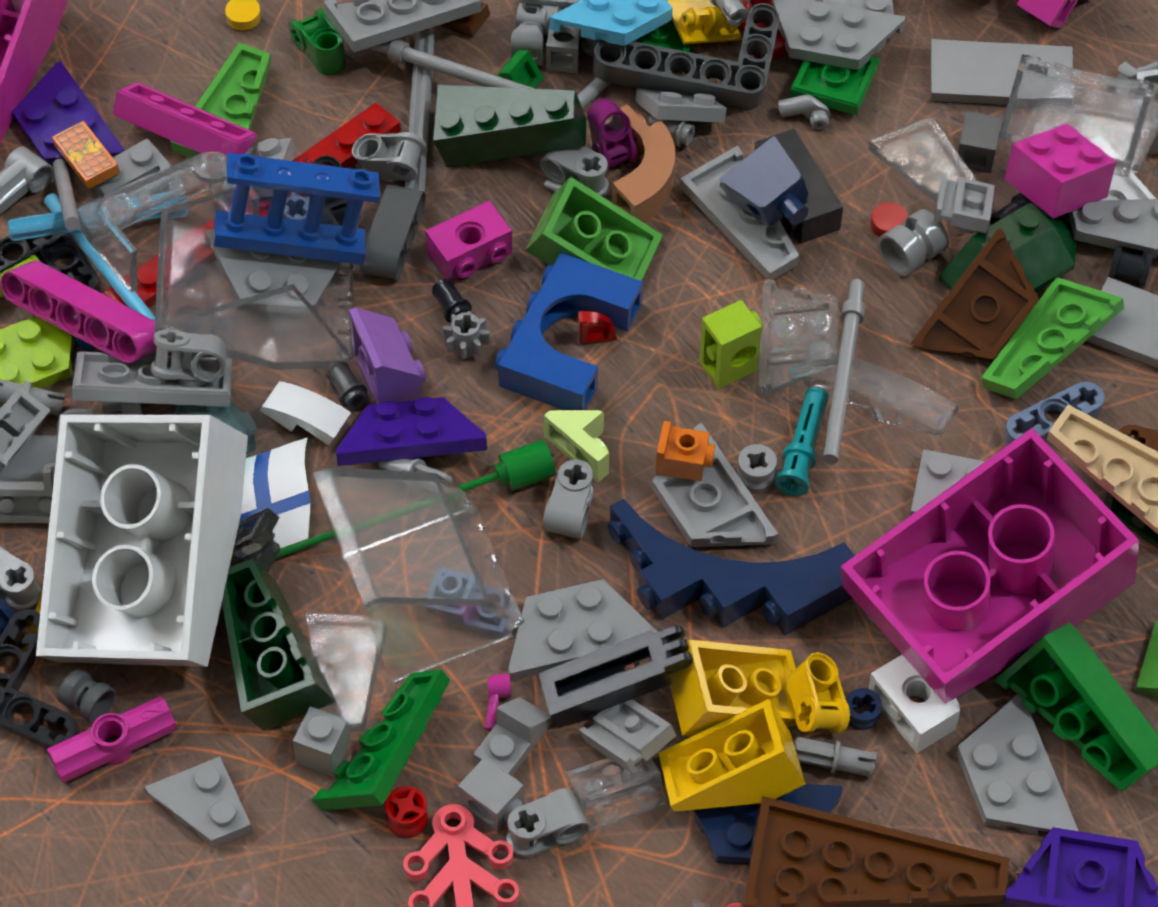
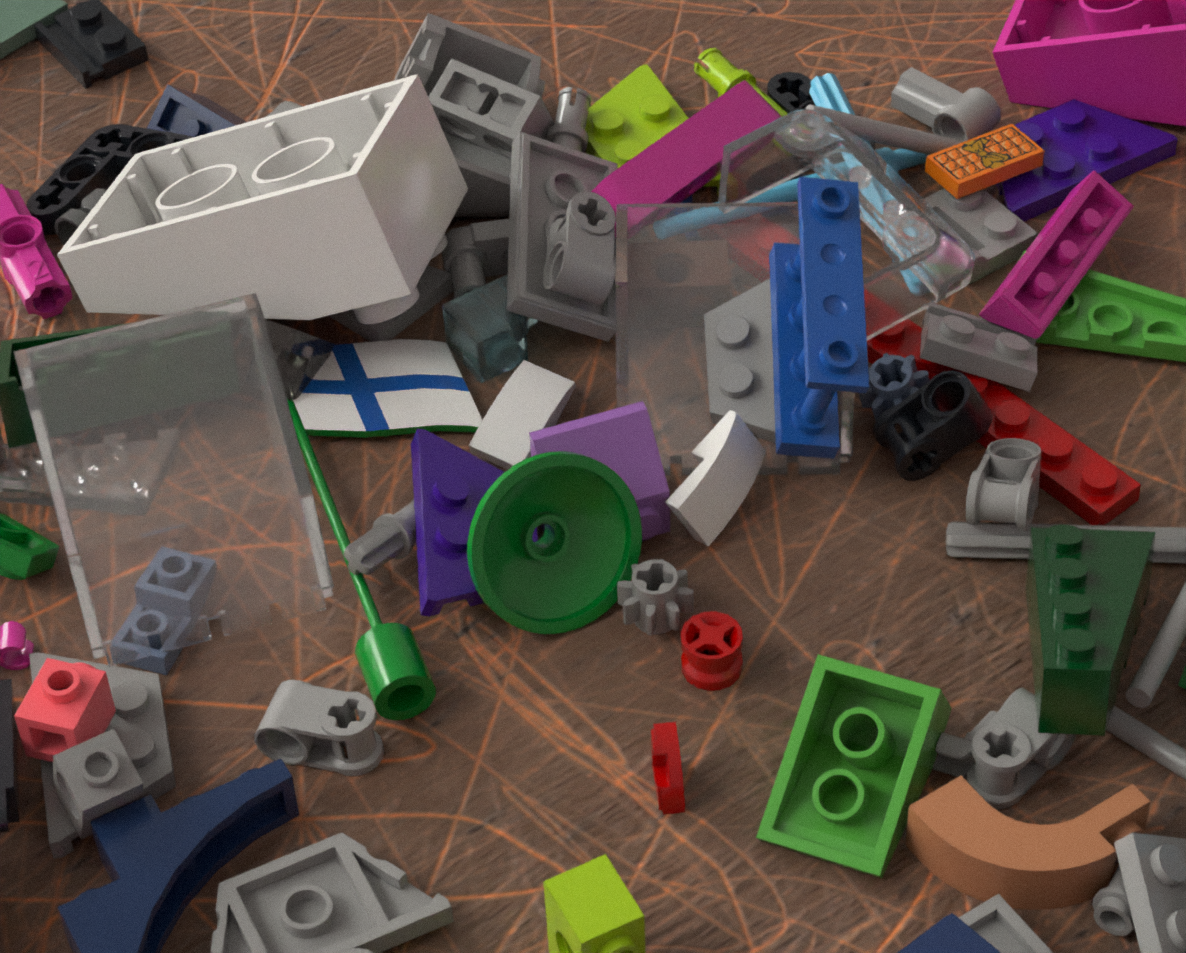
camera: 95 degrees right, 10 degrees down
(365, 294) = (719, 484): none -> white slope
(393, 231) = (866, 508): dark grey beam -> none
(441, 372) = (585, 548): none -> green dish
(450, 298) = (727, 584): black pin -> none
(469, 242) = (845, 599): dark pink brick -> none
(511, 302) = (711, 651): none -> red wheel
(567, 288) = (605, 675): blue arch -> none
(577, 437) = (436, 733): yellowish green slope -> none
(579, 621) = (64, 708): none -> coral brick
(614, 138) = (1079, 772): magenta piece -> none
(634, 598) = (95, 779): none -> light grey brick
(683, 452) = (371, 856): orange brick -> none

